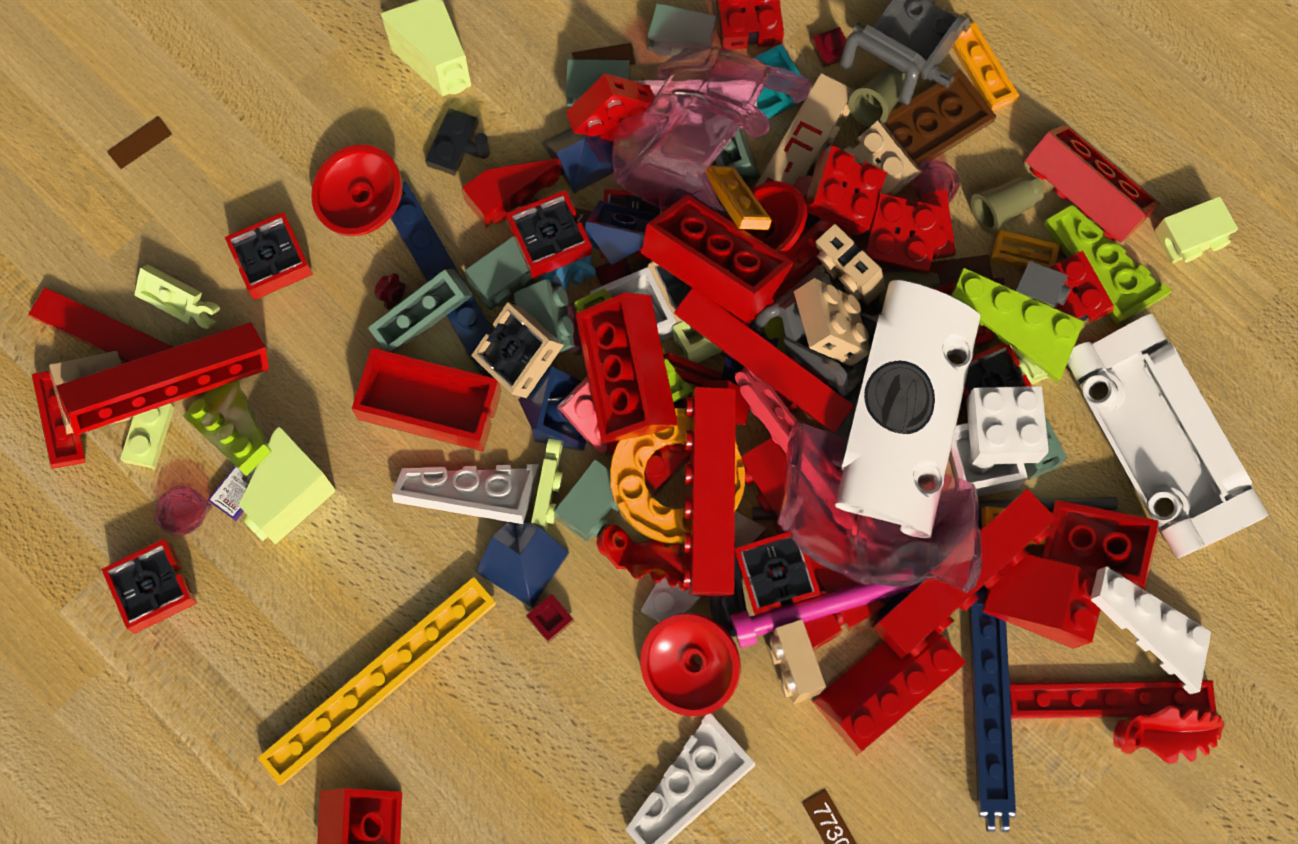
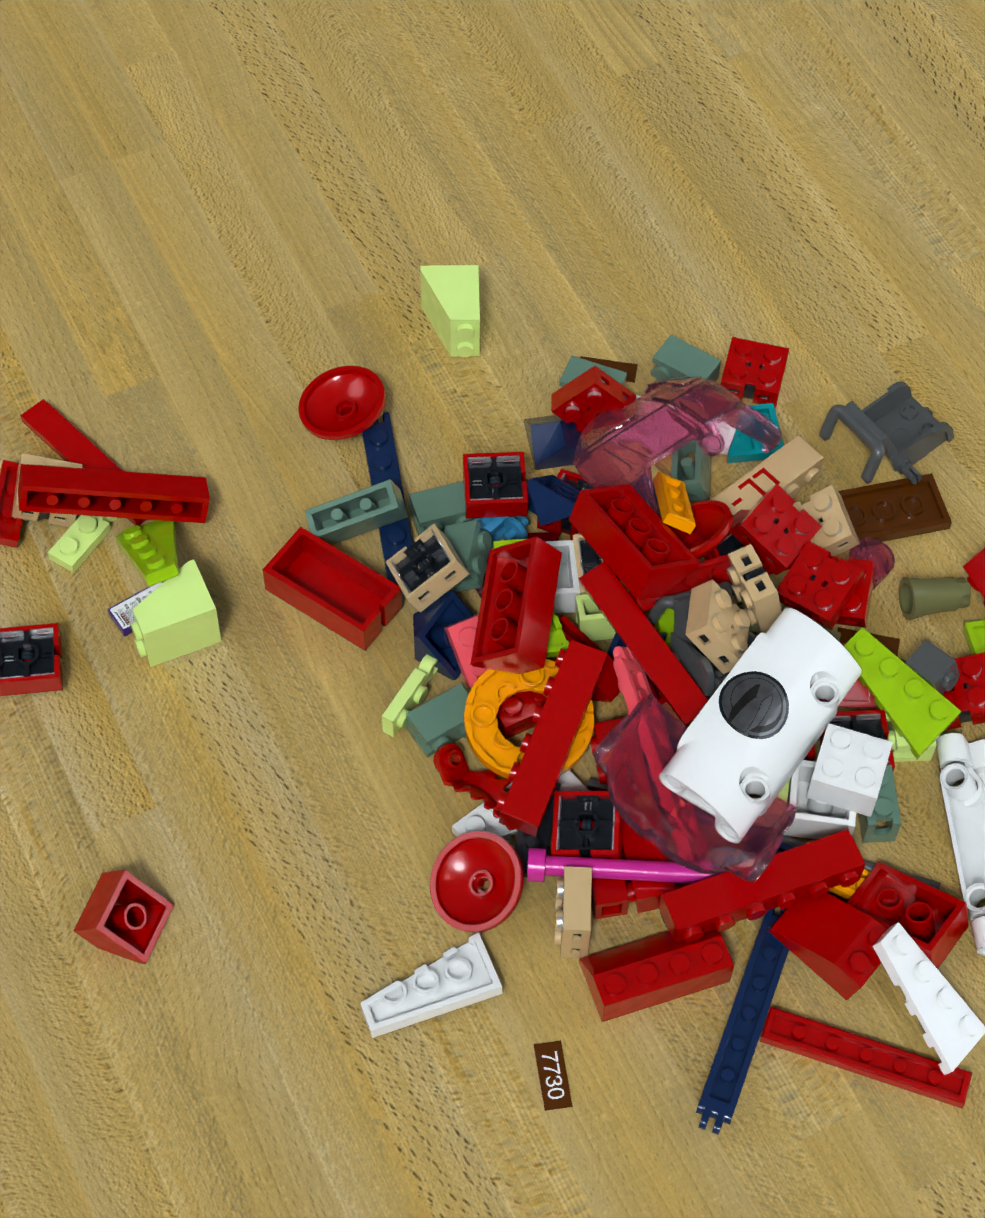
camera: 20 degrees right, 15 degrees down
(139, 143) = (172, 314): reddish brown sticker -> none
(174, 297) = (148, 440): yellowish green plate -> none
(181, 510) = (82, 610): clear pink hat -> none
(268, 256) = (243, 432): piece -> none
(376, 681) = (191, 804): yellow plate -> none
(389, 290) = (336, 488): dark red plate -> none
(454, 141) = (446, 394): black plate -> none
(481, 493) = (338, 676): white wing -> none
(506, 187) = (472, 438): red slope -> none
(522, 561) = (361, 749): dark blue slope -> none
(549, 618) = (366, 805): dark red plate -> none
(829, 46) = (814, 419): dark red plate -> none
(877, 97) = (841, 469): olive plant -> none
(984, 68) = (957, 481): light orange tile -> none
(1026, 241) = (912, 641): light orange tile -> none
(1169, 733) = (911, 1102): red plant -> none

